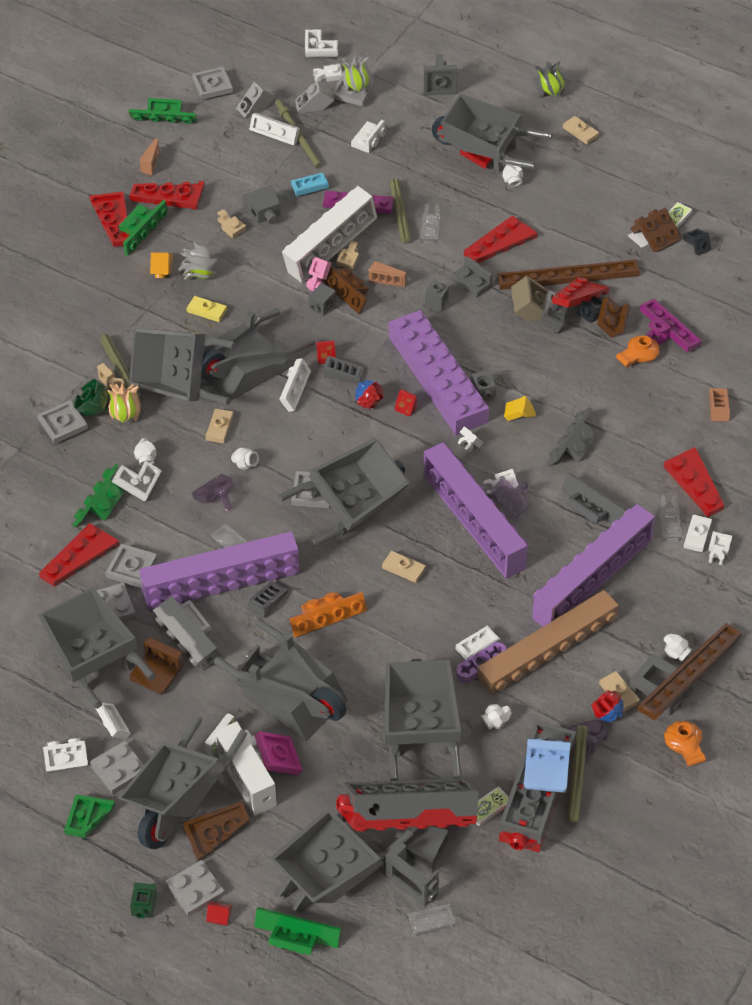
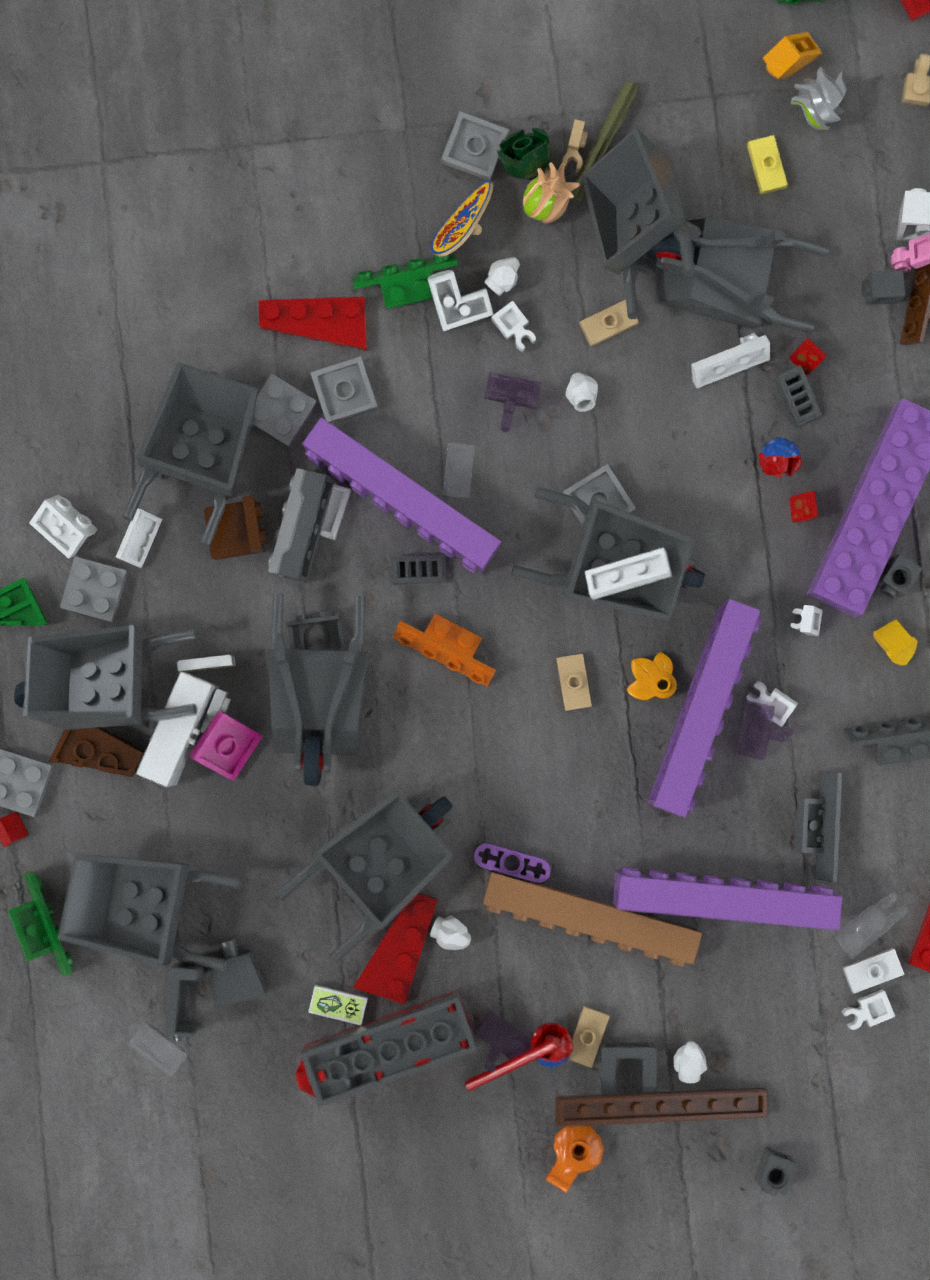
camera: 45 degrees right, 35 degrees up
(97, 450) = (462, 221): none -> shield
(175, 466) = (512, 323): none -> white plate
(366, 482) = (628, 573): none -> white hinge
(408, 803) = (250, 942): dark grey piece -> none
(435, 530) = (649, 676): none -> light orange plate
(477, 642) = (531, 841): white plate -> none
(488, 759) = (397, 956): none -> red wing
(546, 765) = (399, 1060): light blue bracket -> none
(577, 774) = (442, 1073): olive axle -> none
(599, 756) = (513, 1064): none -> red bar

